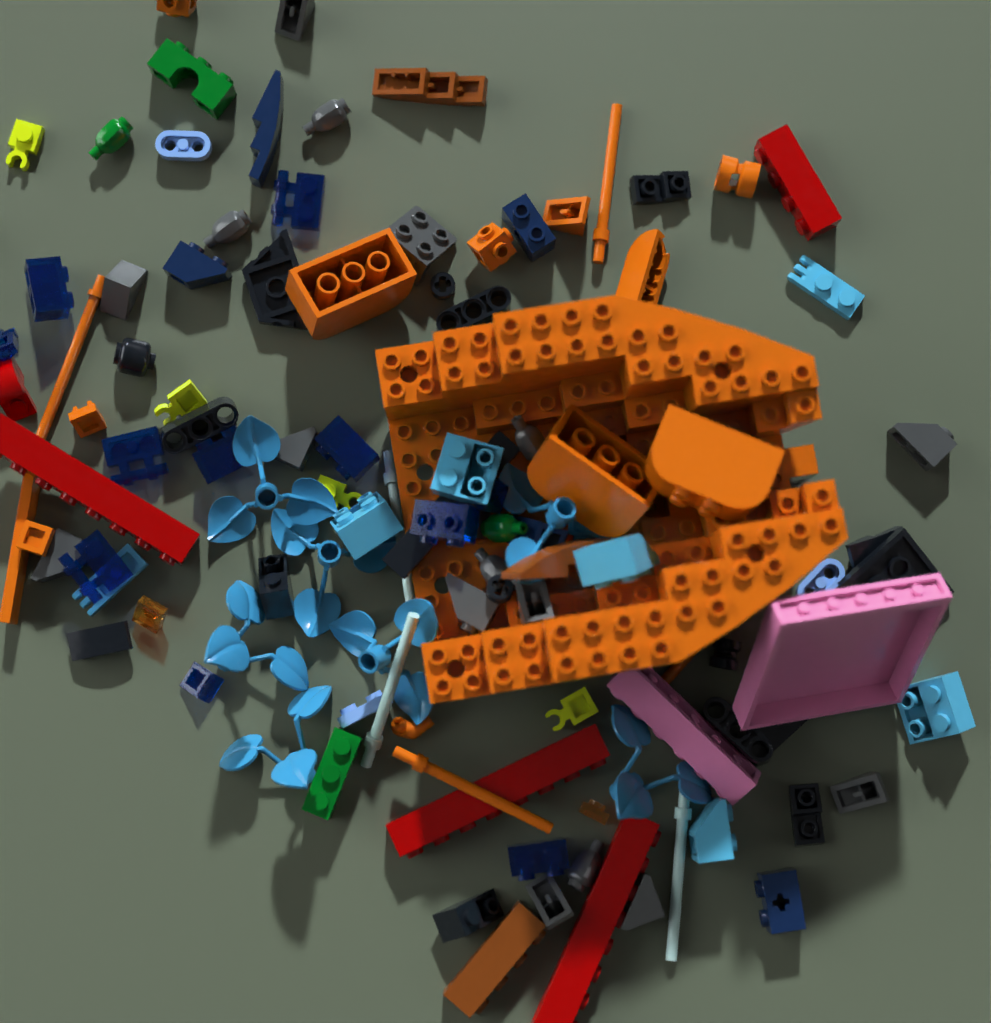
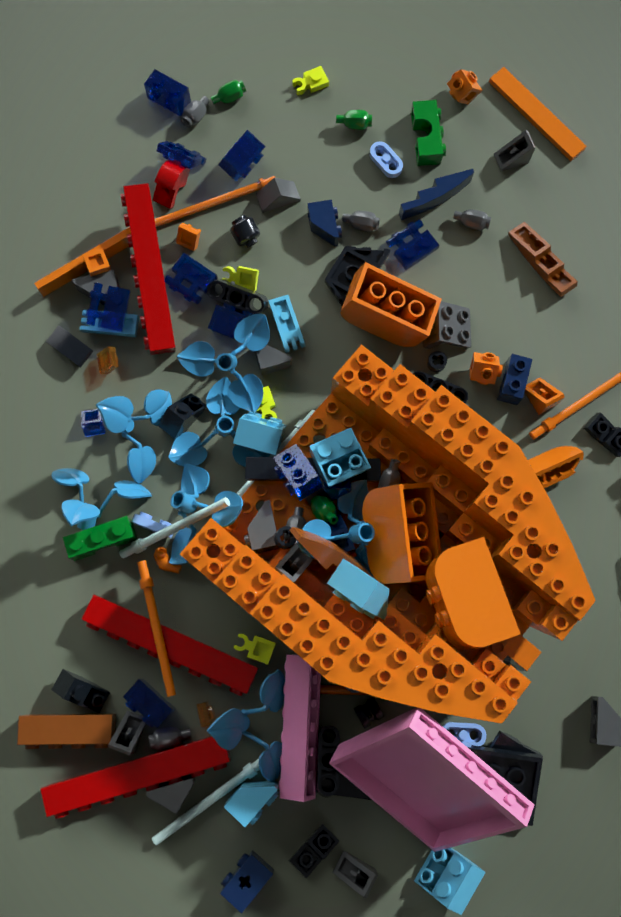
camera: 50 degrees right, 5 degrees down
(270, 399) = (286, 322): none -> medium azure hinge
(346, 449) = (295, 387): clear blue brick -> none

